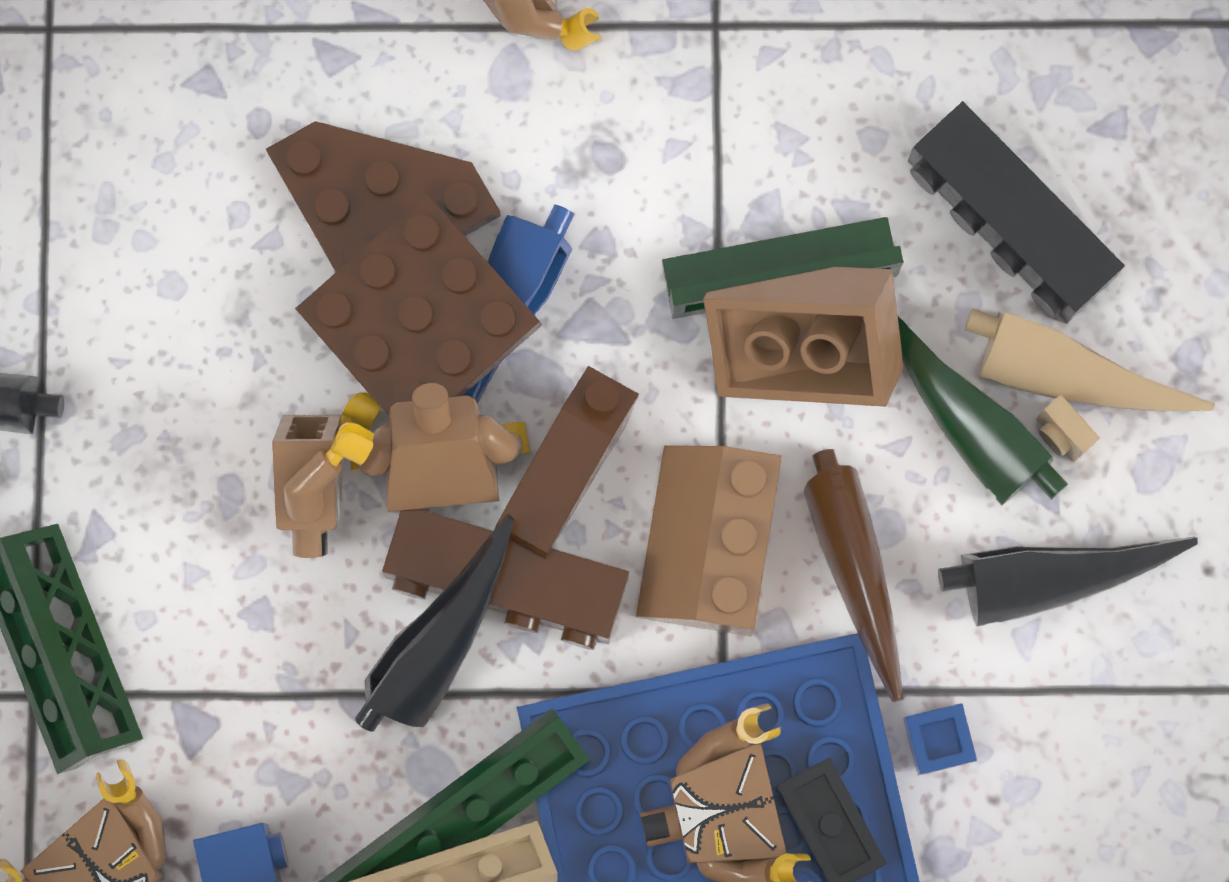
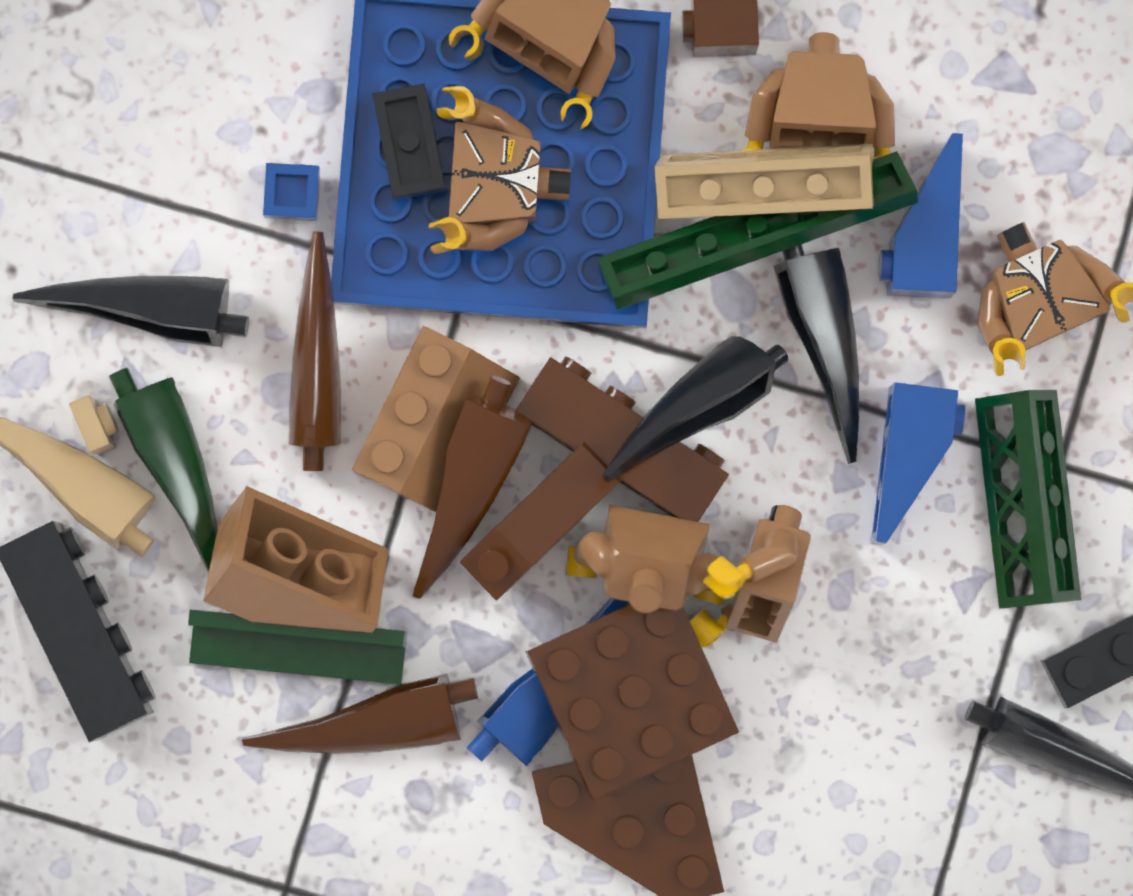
camera: 165 degrees left, 5 degrees up
(194, 666) = (915, 439): none -> blue slope
(332, 780) = (822, 315): none -> black piece
(651, 498) = (475, 468): none -> reddish brown piece
(659, 223) = (397, 719): none -> reddish brown piece

